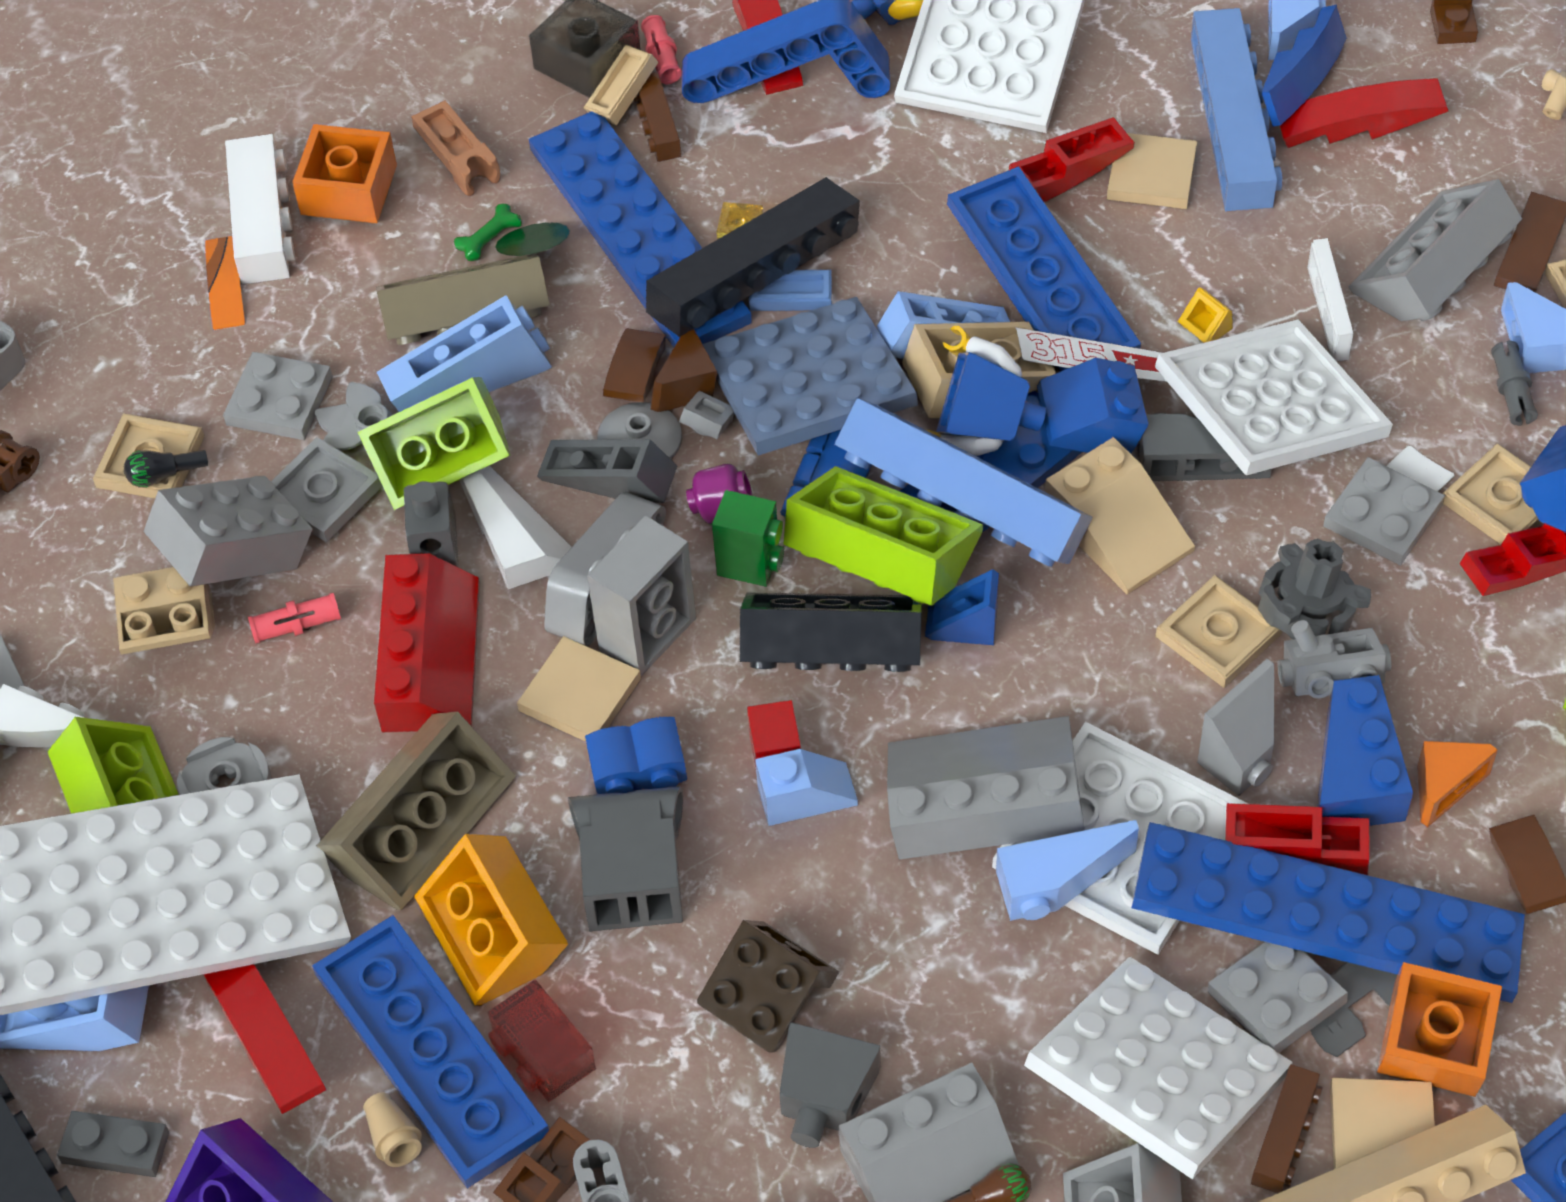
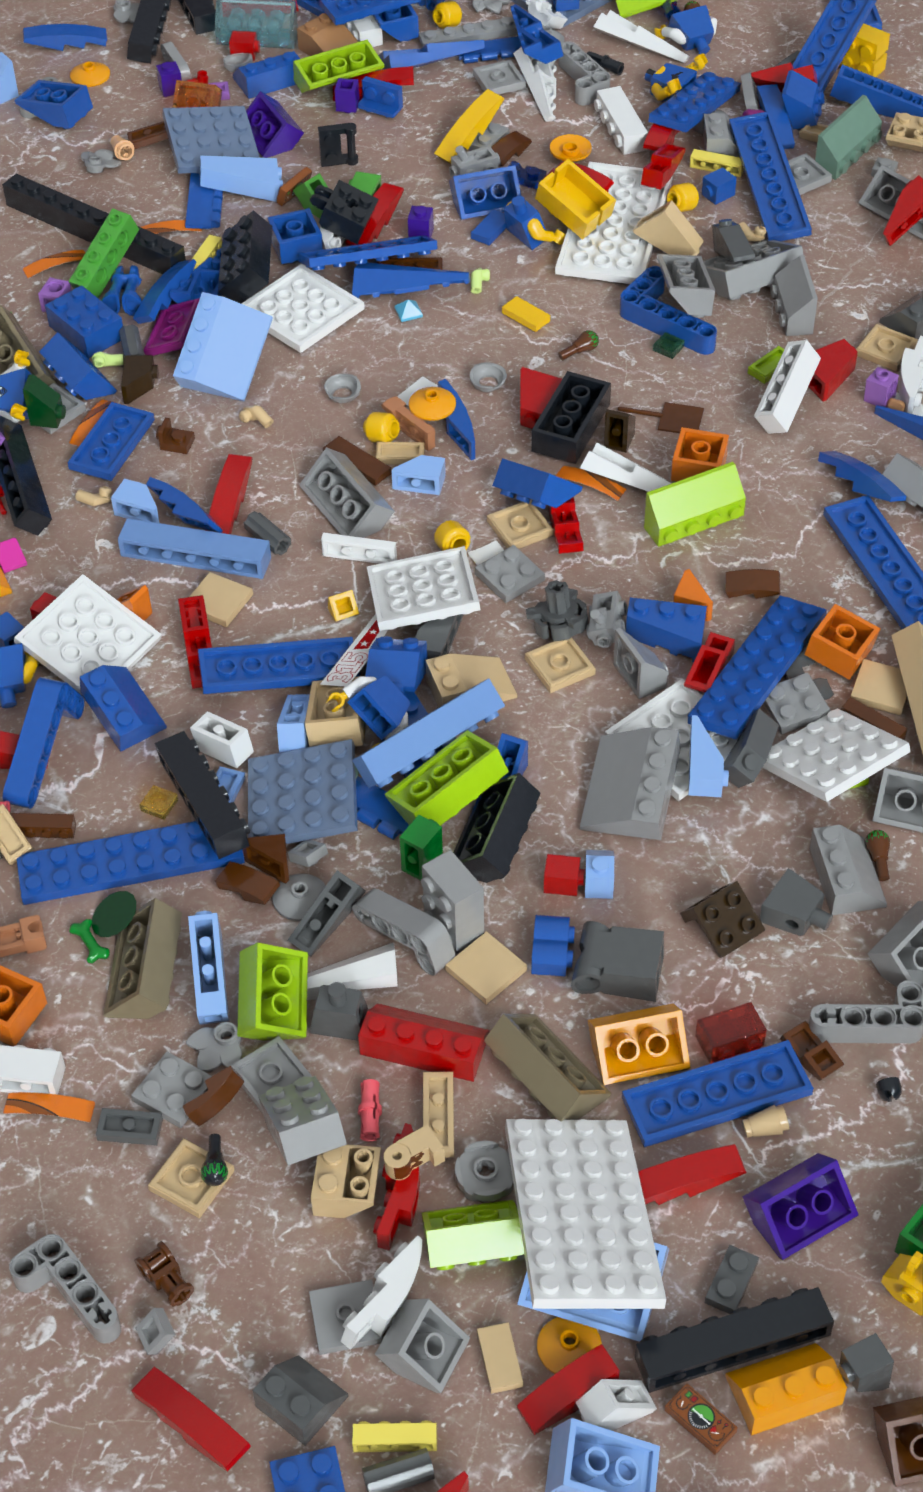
camera: 75 degrees left, 5 degrees down
(189, 688) = (400, 1202): none -> red slope
(204, 366) = (129, 1126): none -> dark grey plate
(207, 672) = (413, 1152): none -> tan leg
(260, 434) = (221, 1091): none -> reddish brown slope
(303, 698) = (439, 1107): none -> tan plate
(709, 488) = (373, 859): magenta head -> none
(868, 251) = (222, 739): none -> white brick
(886, 121) = (120, 705): none -> blue slope
(1083, 81) = (138, 602): none -> orange slope
(1127, 937) = (751, 749): none -> dark grey slope
(1309, 181) = (264, 529): none -> dark grey axle
(1415, 409) = (451, 535): none -> yellow head
(1514, 383) = (450, 495): dark grey pin -> none

